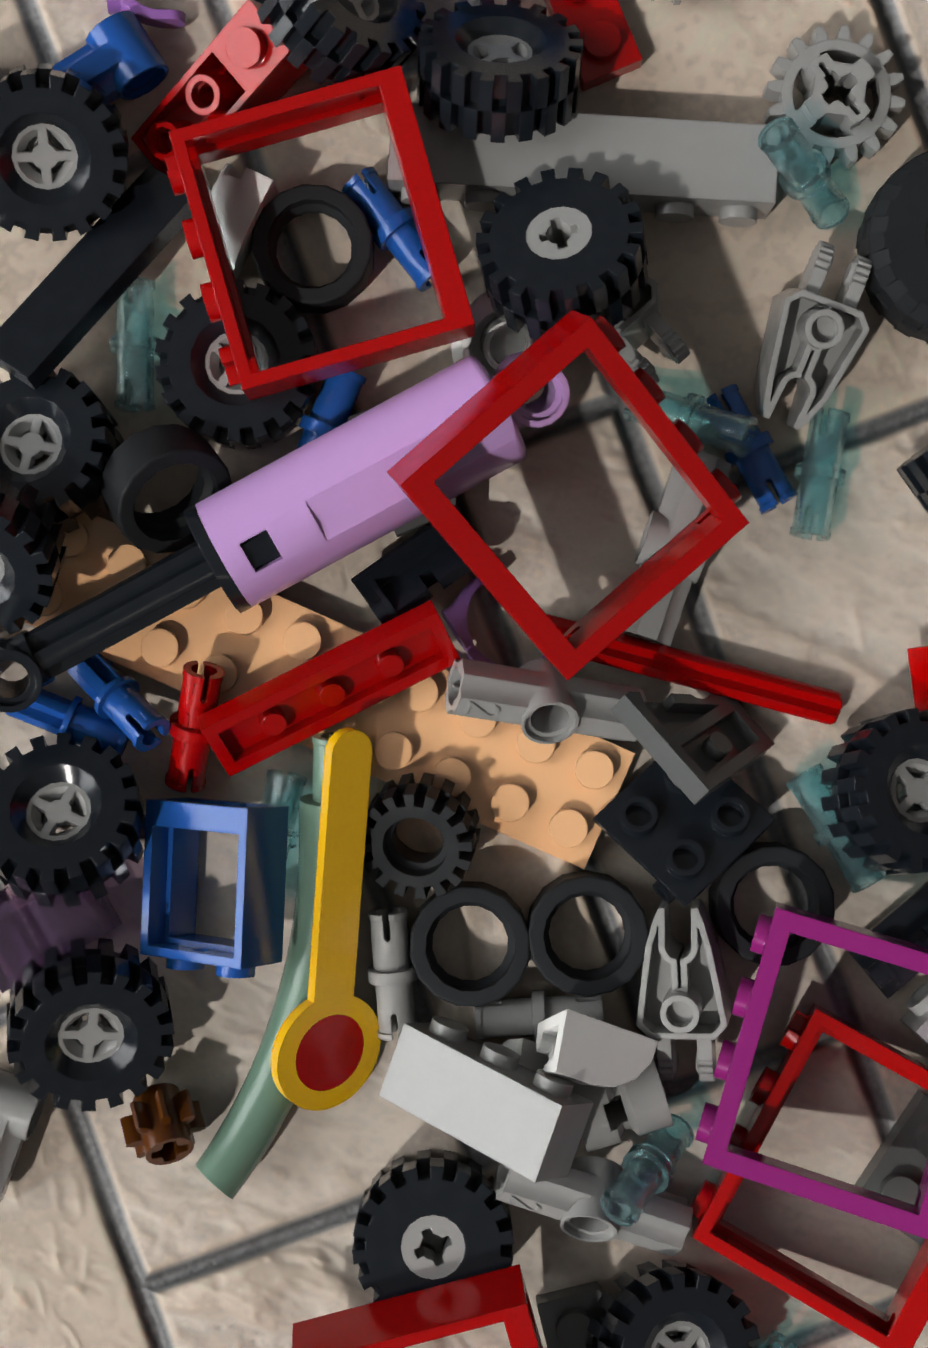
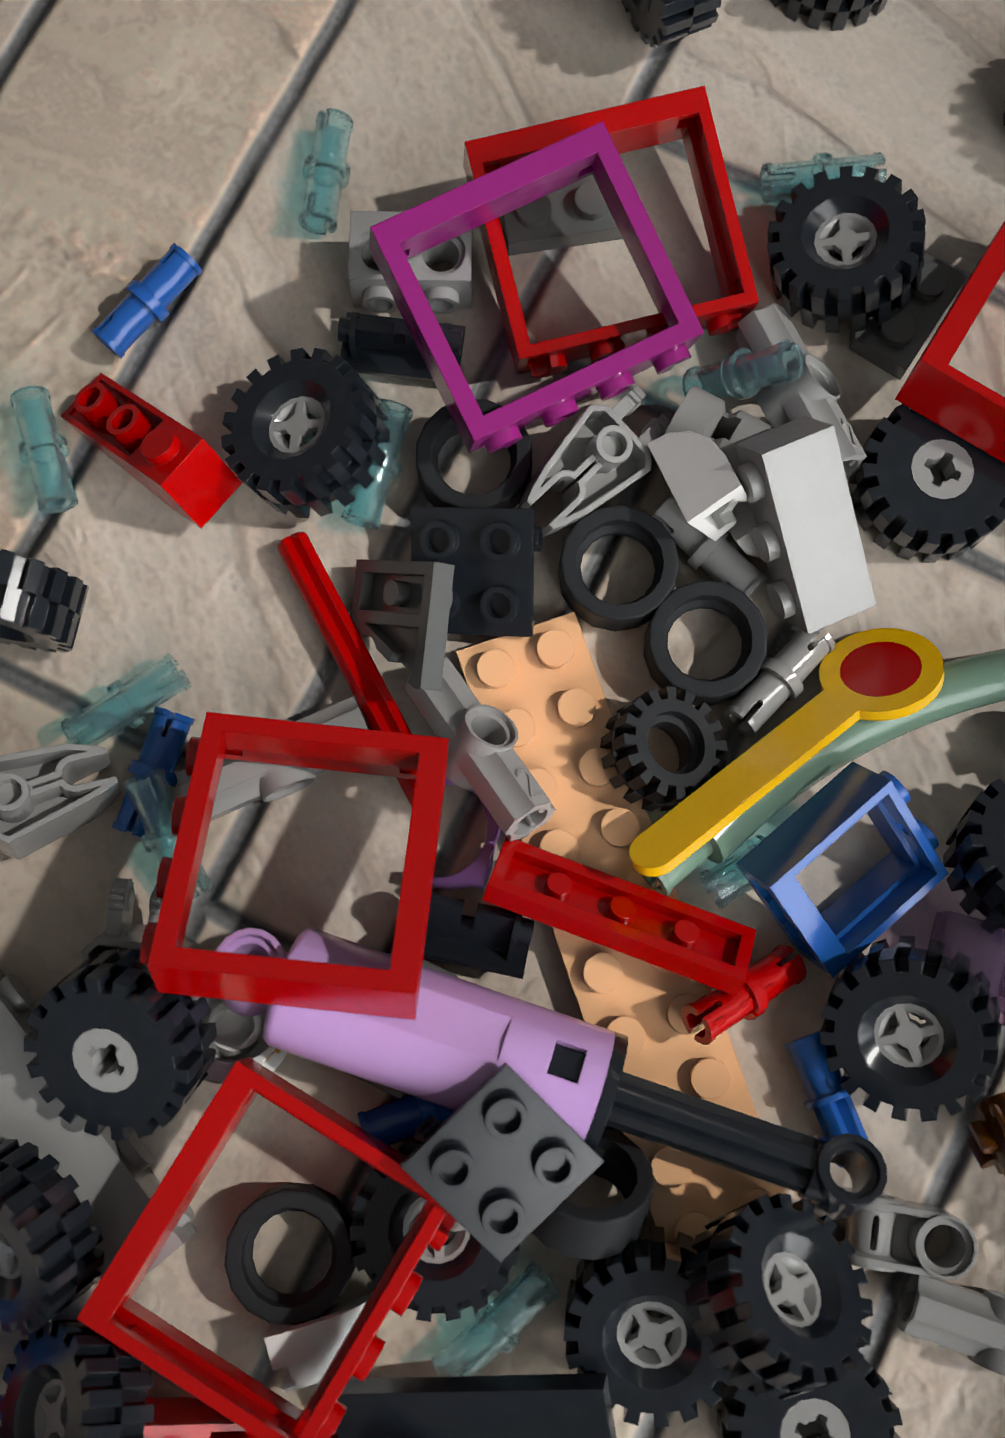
camera: 135 degrees left, 10 degrees down
(119, 700) = (779, 1067): blue axle -> none
(237, 443) = (500, 1161): none -> black hinge
(392, 224) = (216, 1207): blue pin -> none

